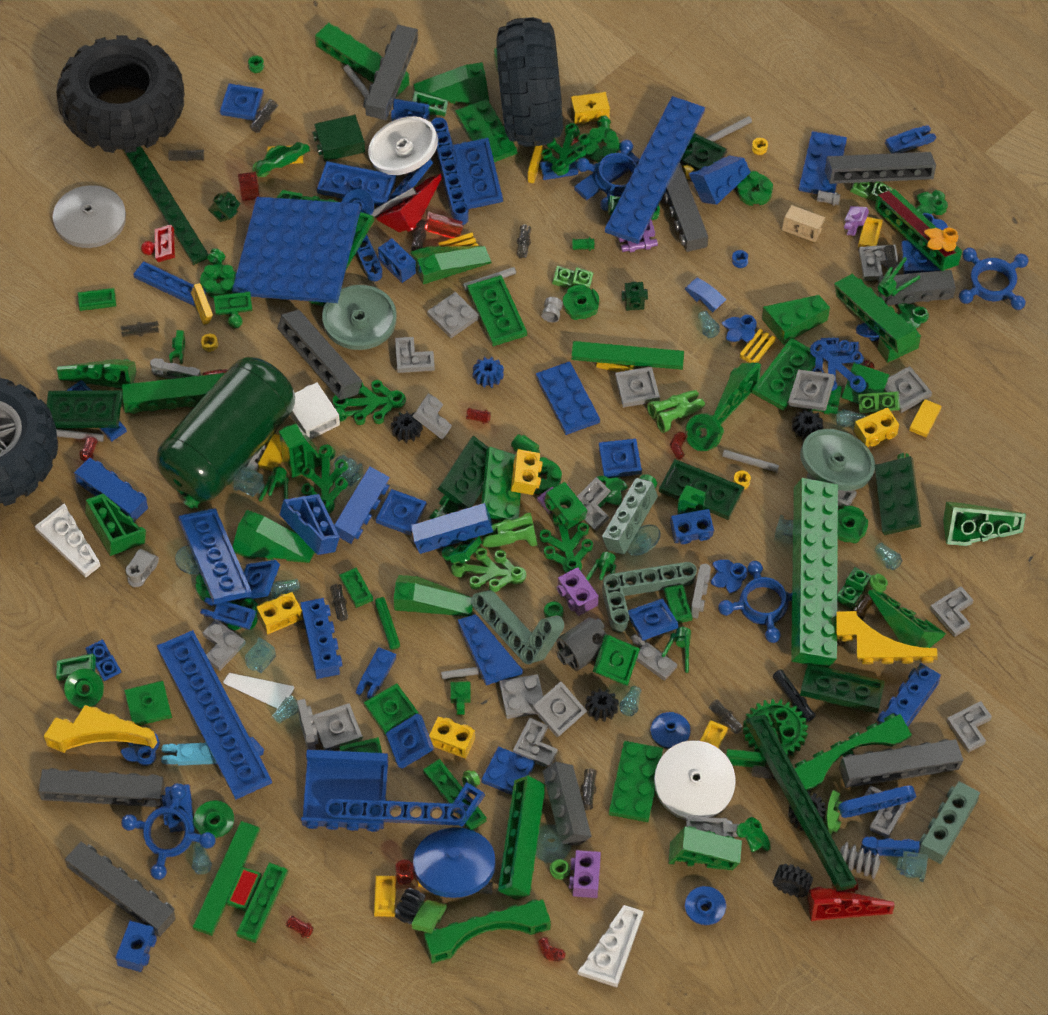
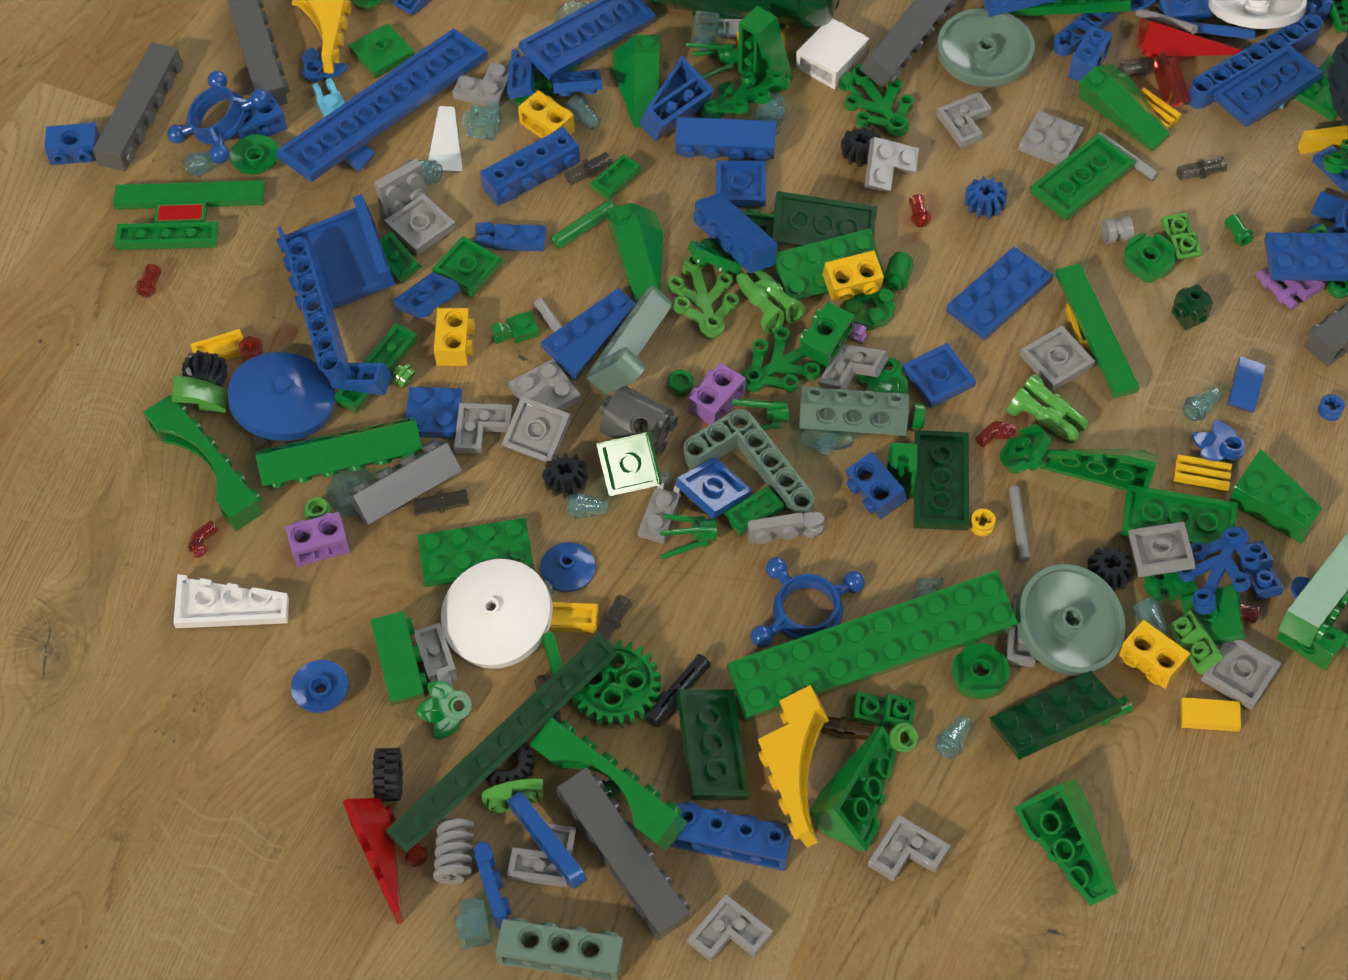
camera: 70 degrees right, 0 degrees up
(726, 575) = (824, 554): blue plate -> none

